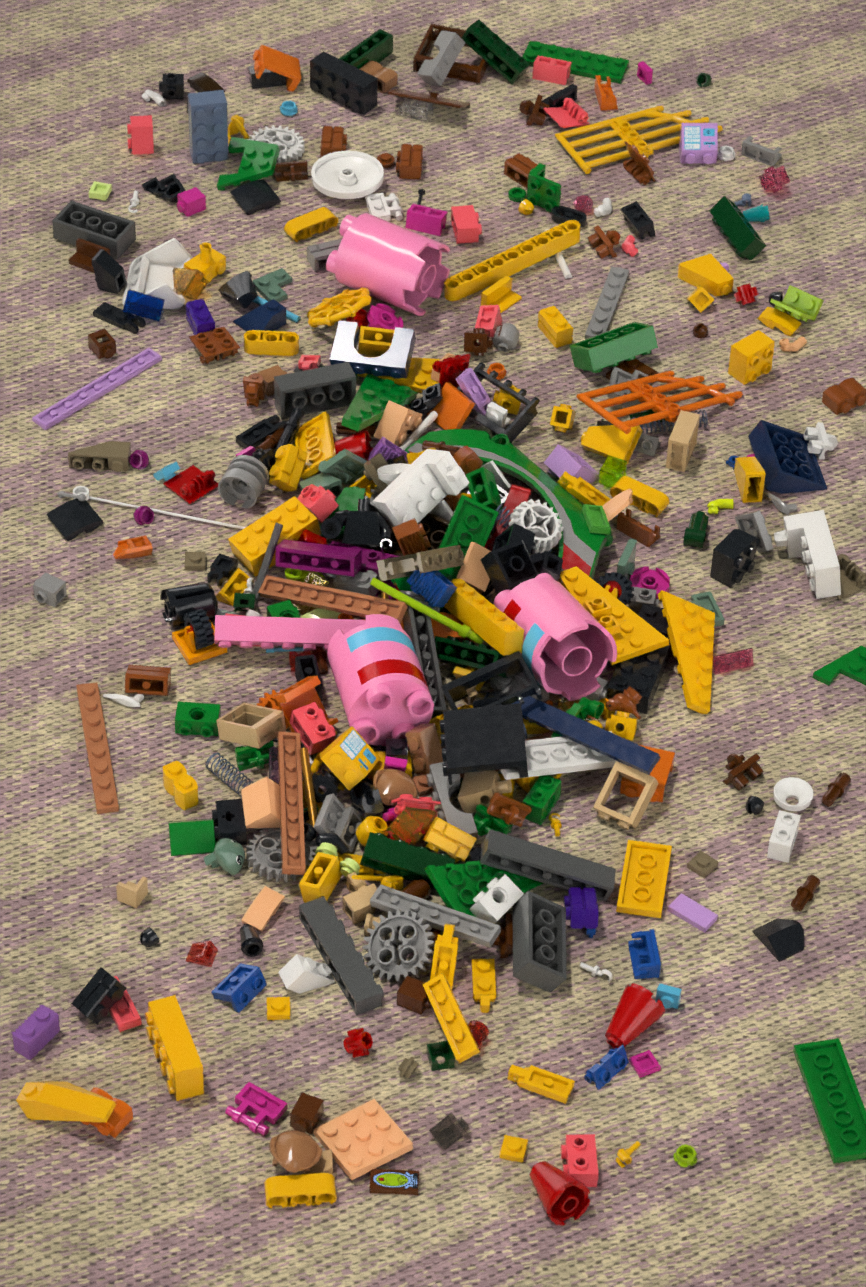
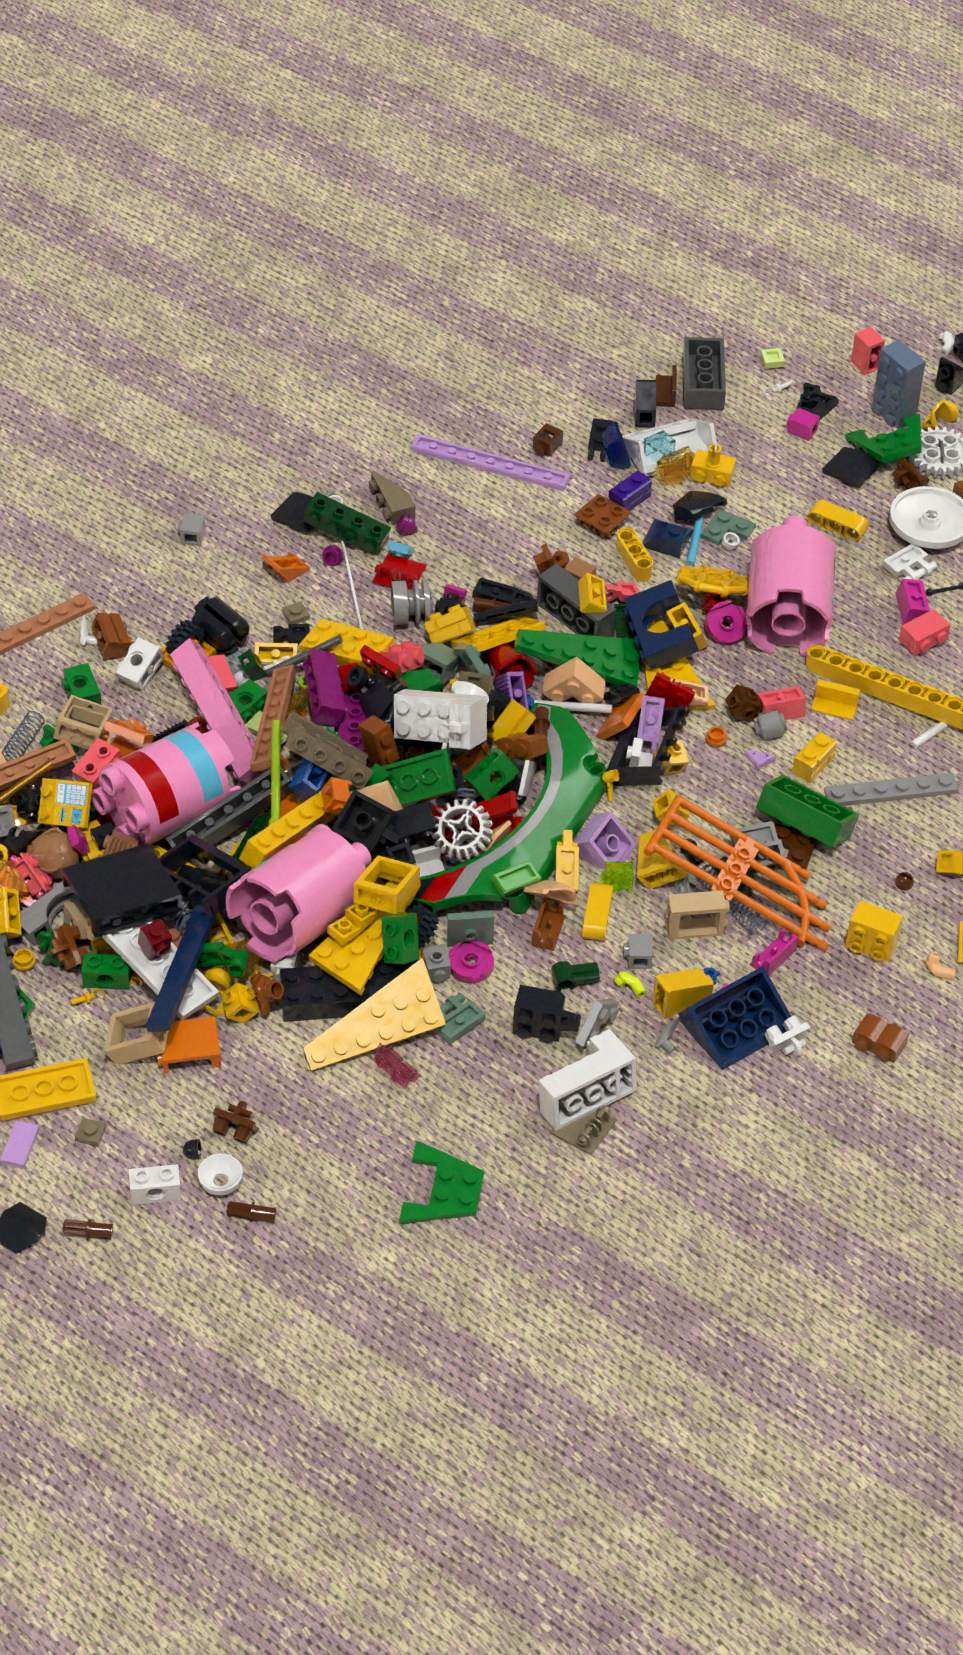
camera: 65 degrees right, 5 degrees up
(120, 489) = (346, 523): none -> dark green brick
(161, 277) = (659, 442): none -> clear light blue panel
(198, 659) = (140, 675): none -> white brick
(292, 288) = (730, 536): none -> white hinge
(325, 368) = (592, 594): none -> yellow slope
(327, 507) = (374, 659): none -> red plate
(468, 579) = (335, 795): none -> orange brick
(513, 435) = (610, 777): none -> yellow hand
(532, 358) = (759, 759): none -> lavender tile
(554, 739) = (154, 939): none -> dark red brick
(589, 591) = (390, 899): none -> yellow window
(631, 595) = (400, 938): none -> green brick
(693, 487) = (639, 951): none -> light grey brick
(735, 418) = (776, 953): none -> dark pink hinge

